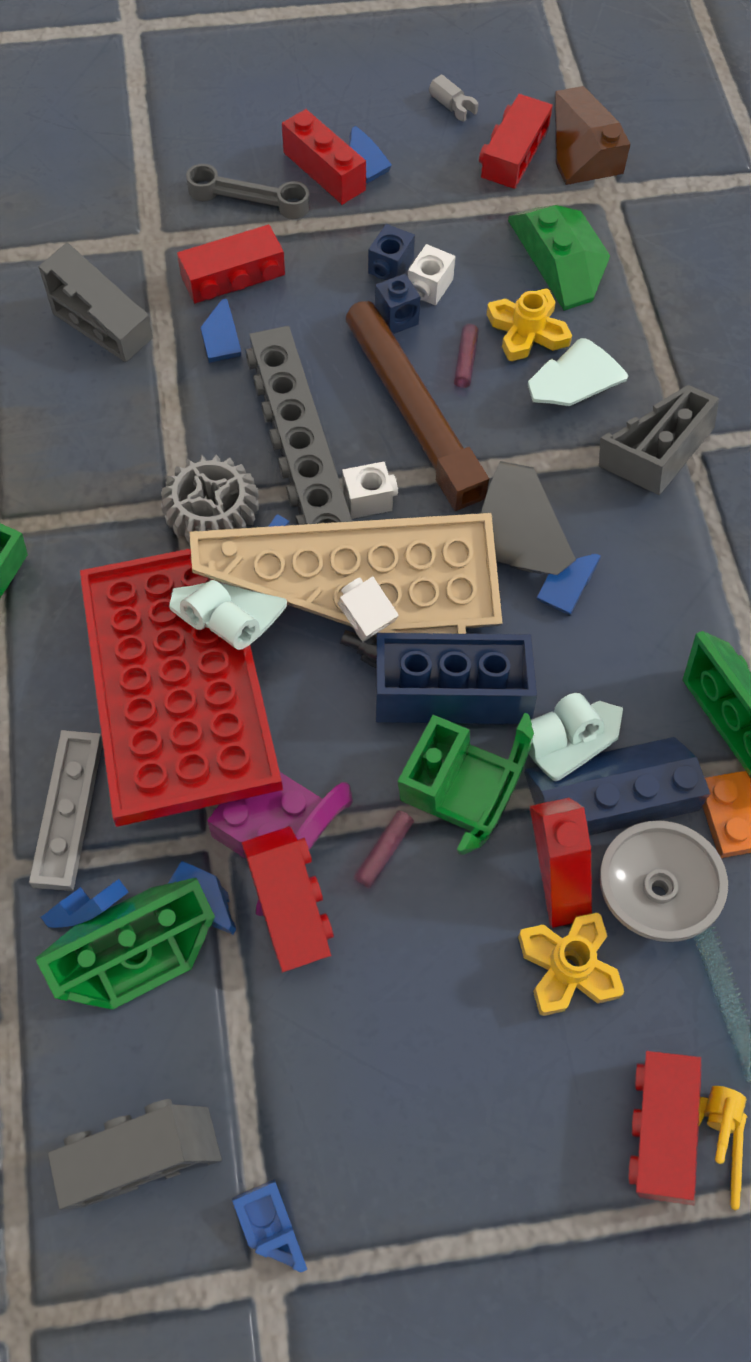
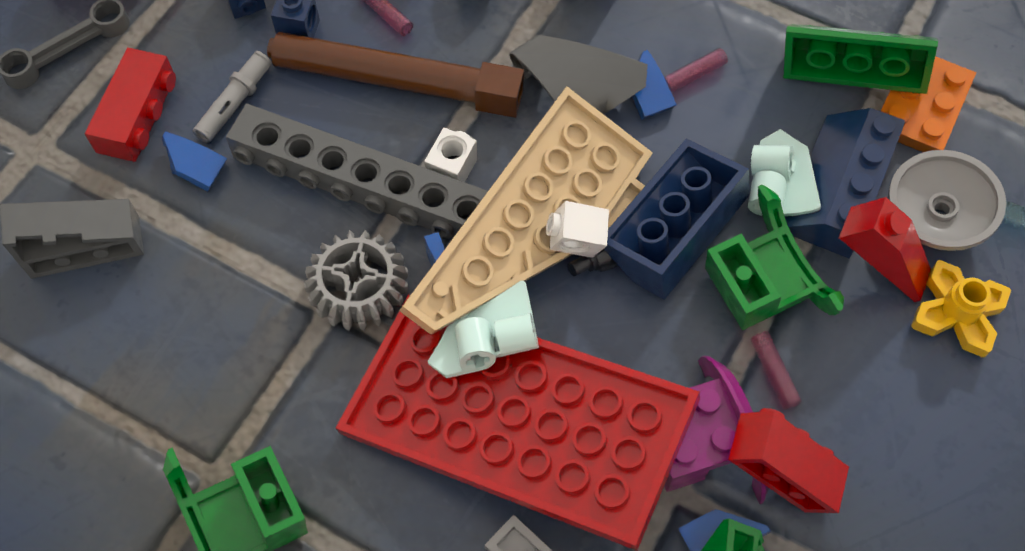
camera: 50 degrees left, 0 degrees up
(296, 317) = (240, 85): none -> light grey pin
(620, 605) = (696, 69): none -> clear pink piece

